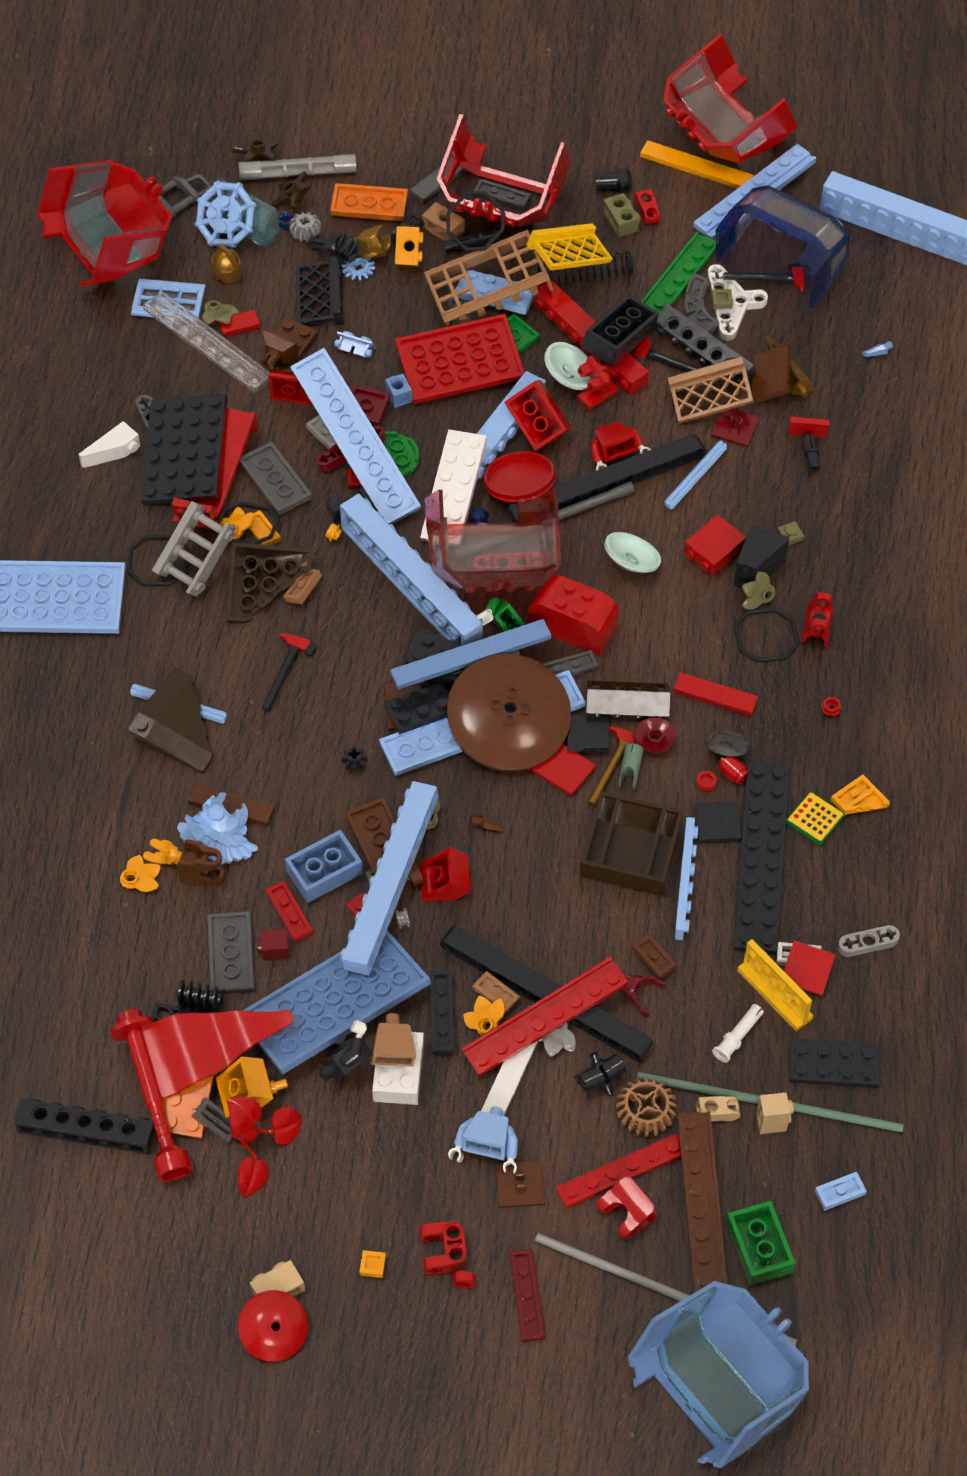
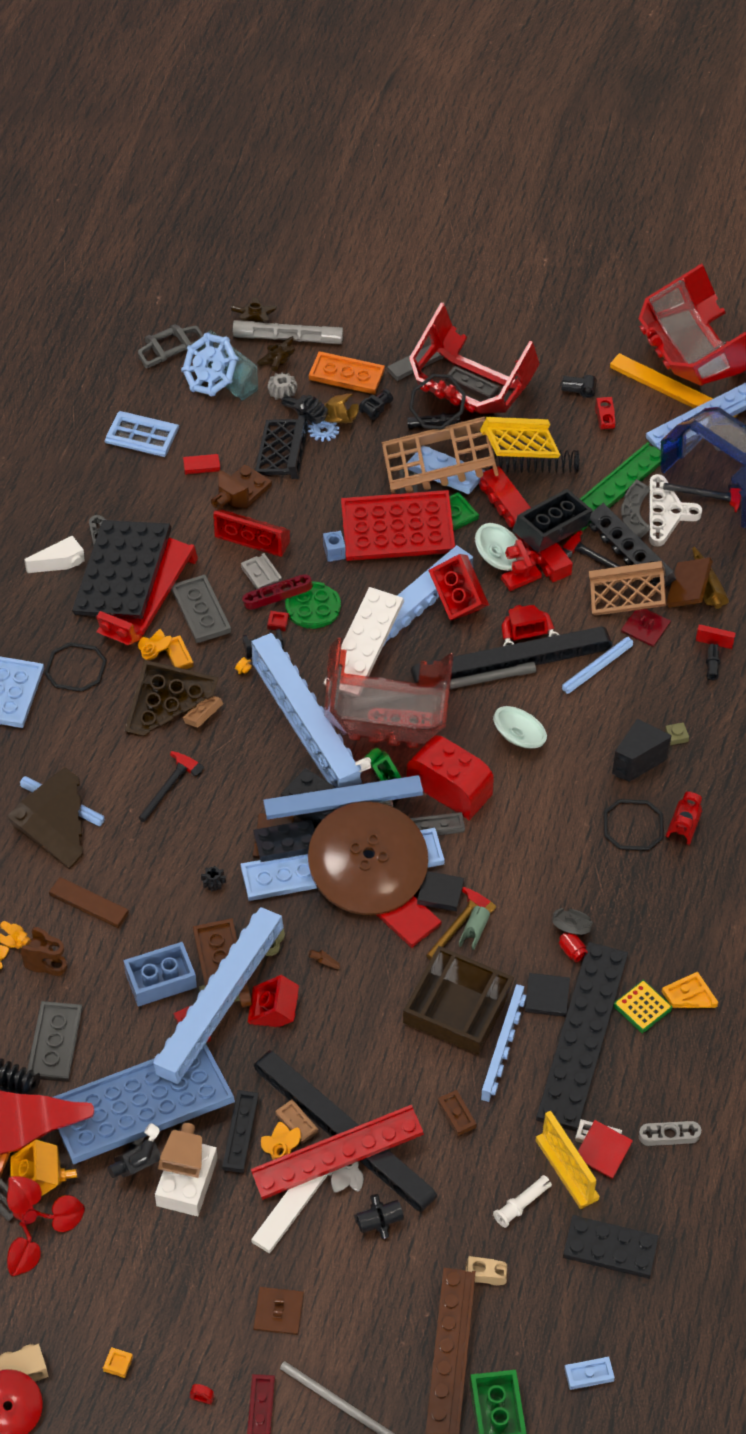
camera: 10 degrees right, 5 degrees down
(105, 217) = (99, 350): red windscreen -> none
(176, 544) = (95, 650): light grey fence -> none
(207, 341) = (167, 475): clear plate -> none
(219, 830) = (70, 924): light blue piece -> none
(220, 312) = (185, 451): olive plate -> none
(226, 265) = (201, 410): pearl gold helmet -> none
(255, 506) = (171, 629): black piece -> none
(273, 944) = (96, 1040): dark red brick -> none
(284, 216) = (264, 374): clear blue bush -> none
(289, 911) = (119, 1011): red tile -> none
(355, 437) = (282, 582): light blue plate -> none
(362, 345) = (310, 501): light blue hinge -> none
(371, 402) = (300, 555): dark red plate -> none
(402, 918) = (223, 1035): clear bush -> none
(404, 235) = (370, 406): light orange brick -> none
(436, 222) = (402, 397): medium nougat brick -> none
(438, 1232) = (188, 1343): red piece -> none
(479, 516) = (383, 671): clear blue bush -> none
(487, 1136) = (256, 1258): light blue torso -> none
(519, 476) = (428, 640): red brick -> none
(621, 215) = (579, 417): olive brick -> none
(628, 698) = (485, 864): slope -> none
(631, 1165) = (376, 1315): red plate -> none
(633, 1094) = (408, 1267): medium nougat gear -> none
(633, 1199) = (385, 1349): red piece -> none
(635, 983) = (432, 1135): dark red helmet -> none
(658, 729) = (506, 896): dark red dish -> none
(706, 781) = (544, 954): red tile -> none
(714, 545) = (599, 733): red brick -> none
(715, 694) = (571, 873): red tile -> none
(722, 298) = (657, 506): olive plate -> none
(756, 591) = (631, 781): olive plate -> none
(774, 1113) = (539, 1284): tan brick -> none
(797, 1107) = (541, 1274): sand green piece -> none
(831, 702) = (681, 898): red plate -> none

